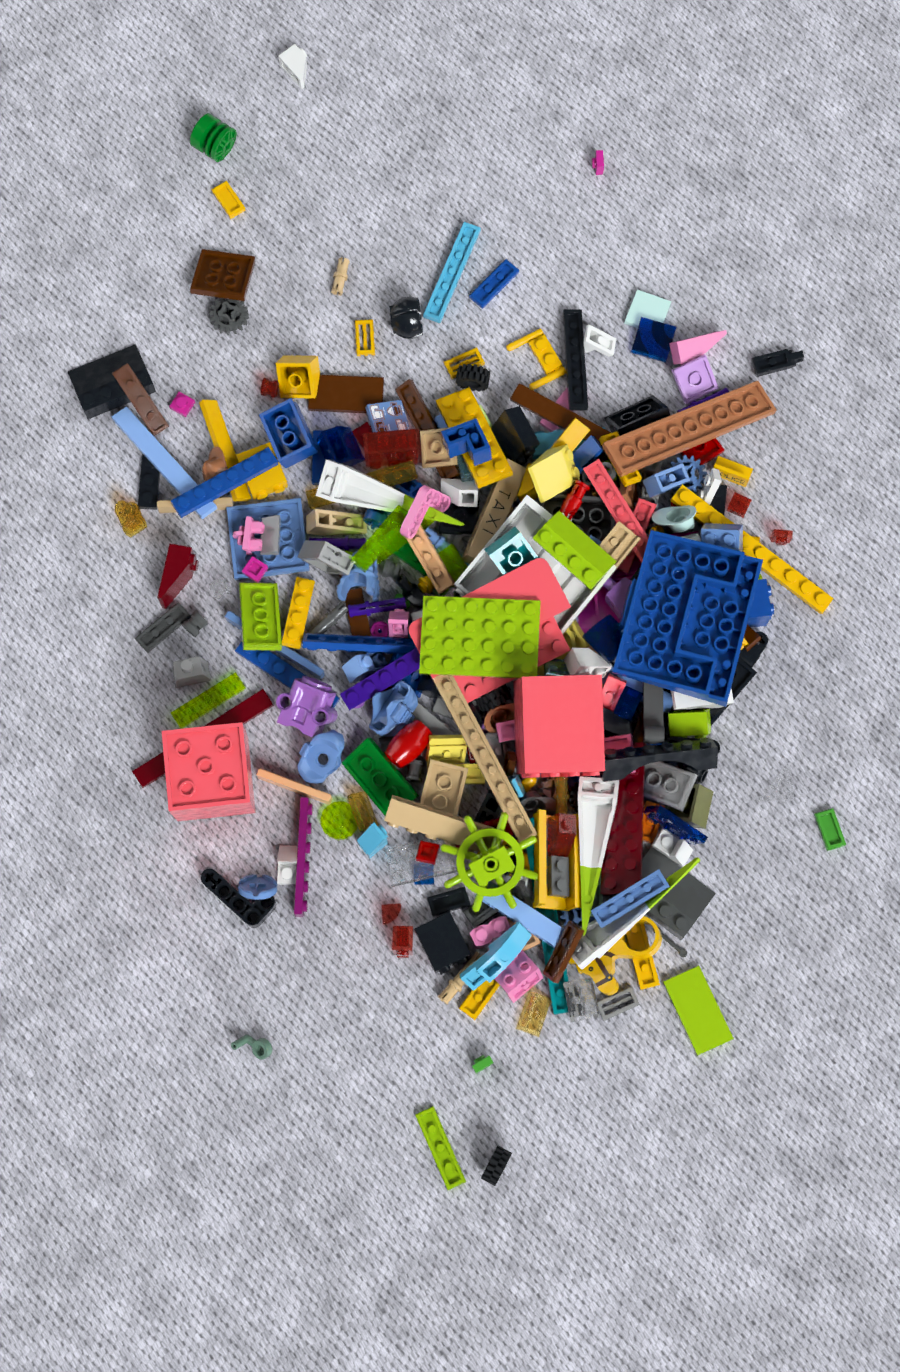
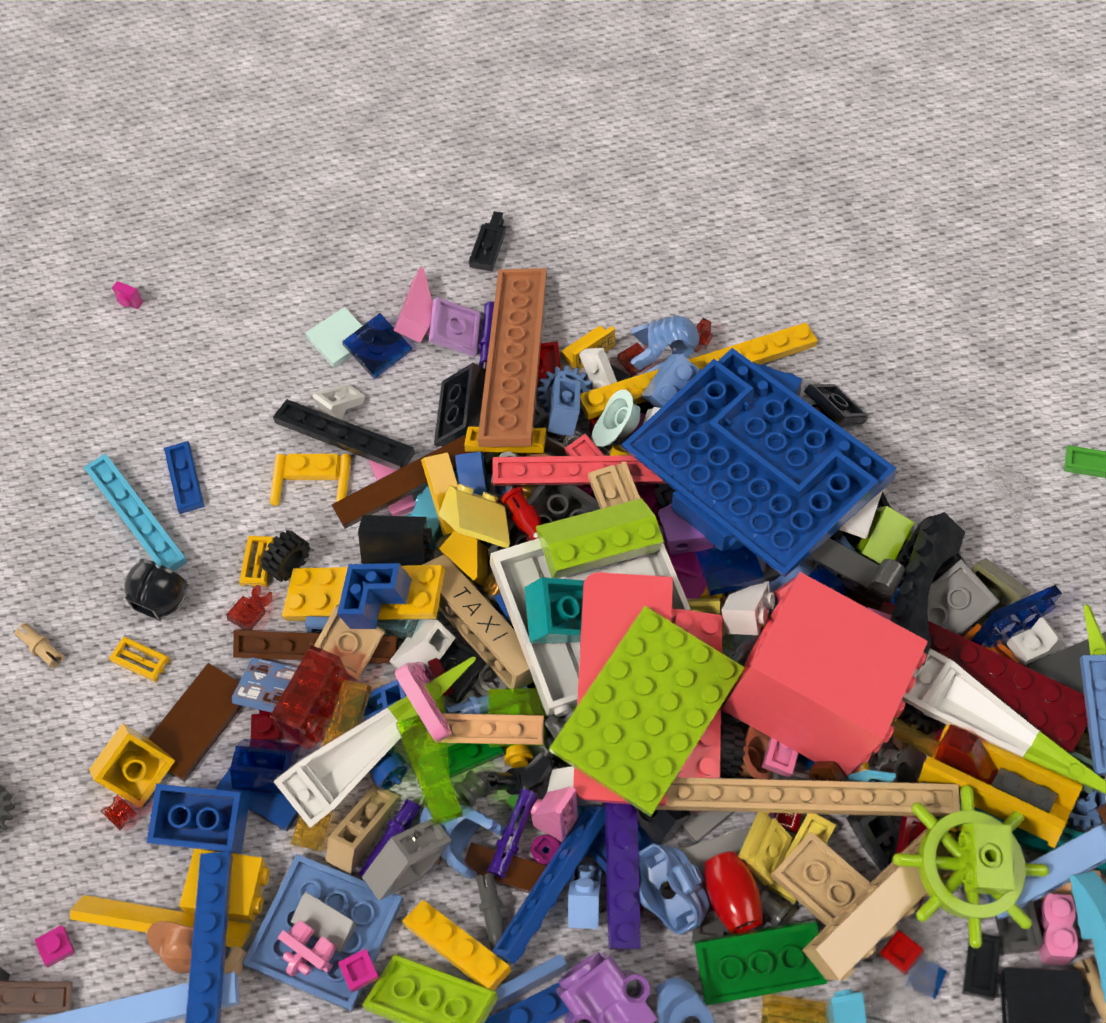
camera: 55 degrees left, 15 degrees down
(427, 379) = (248, 612): none -> clear red plate
(449, 509) = (437, 670): none -> dark red tile
(760, 513) = (674, 331): none -> medium blue hair
(775, 647) = (836, 404): none -> black tile

